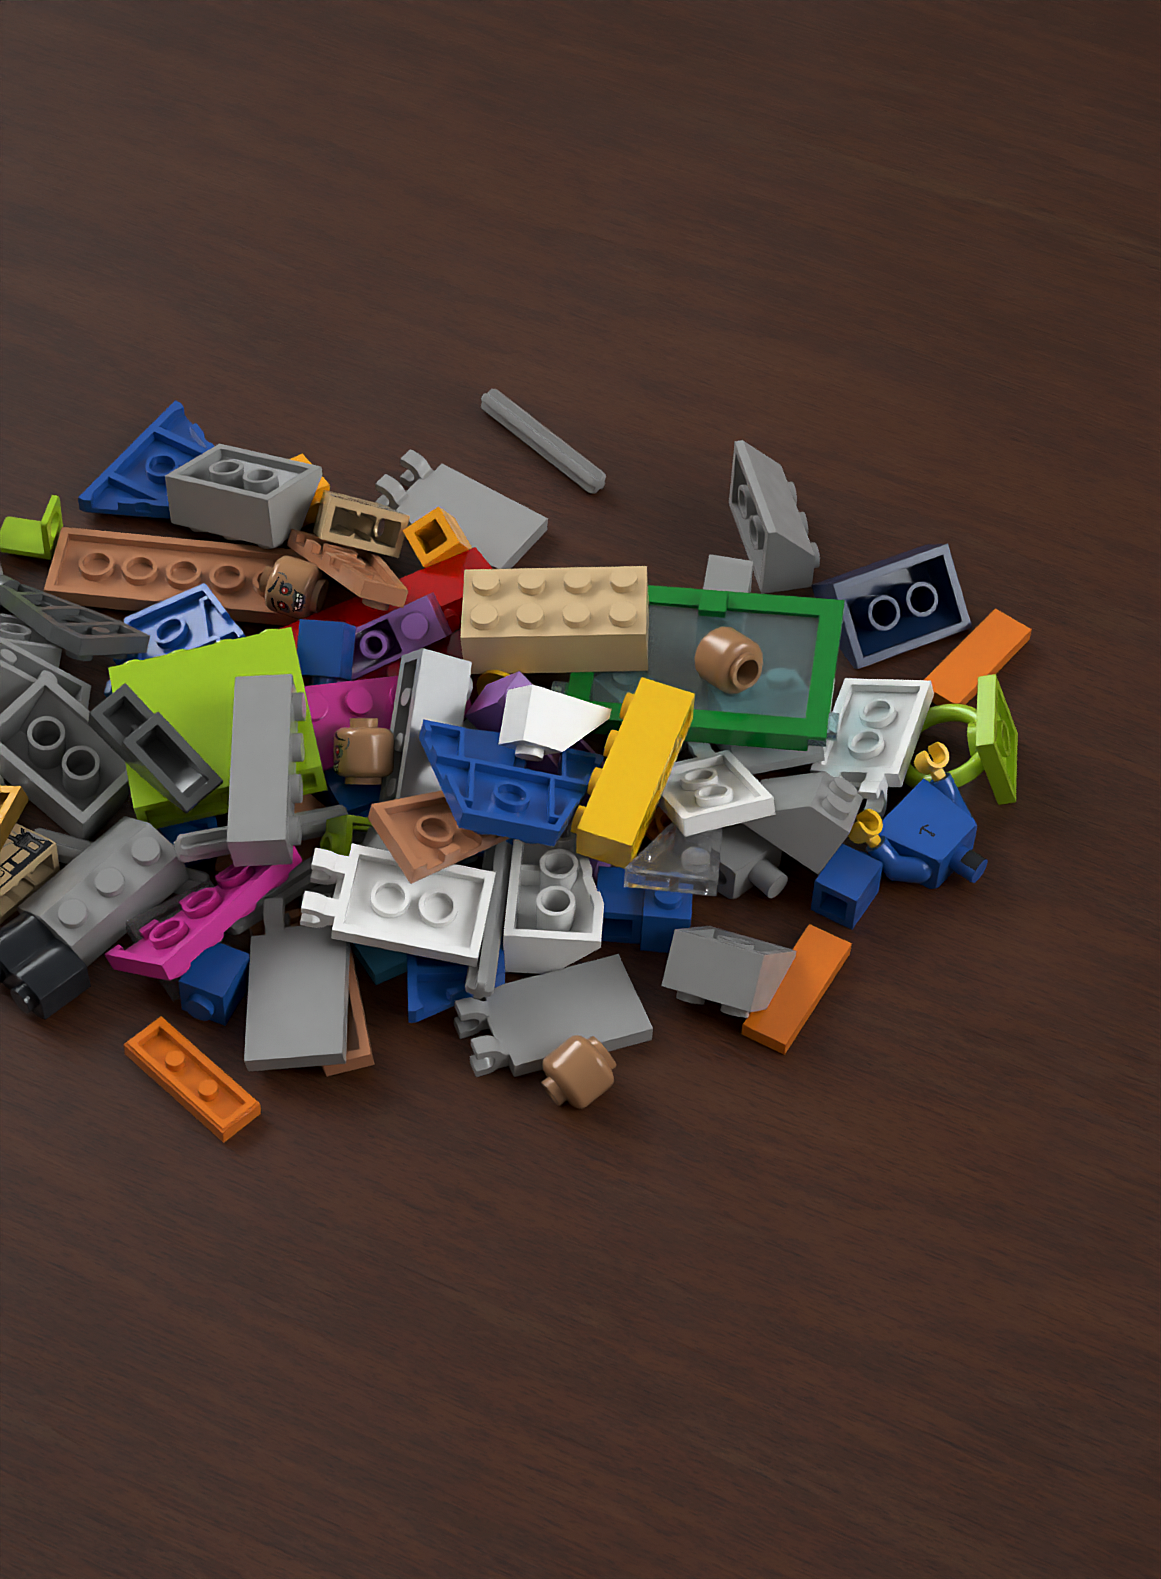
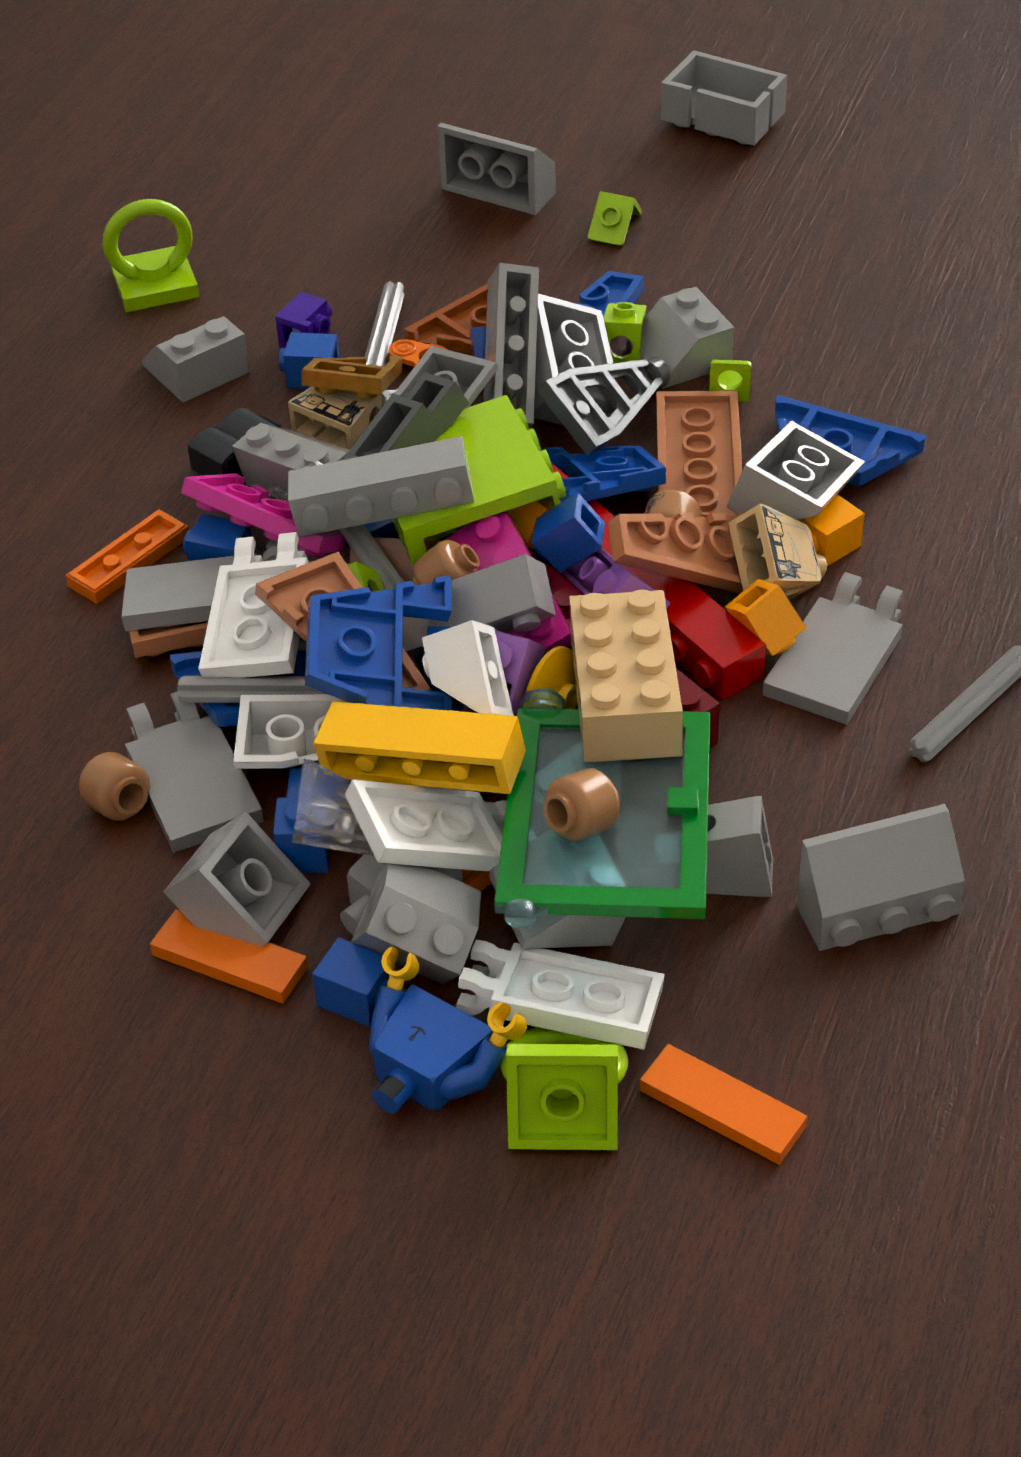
camera: 90 degrees right, 5 degrees down
(897, 604) = (785, 1010): dark blue slope -> none

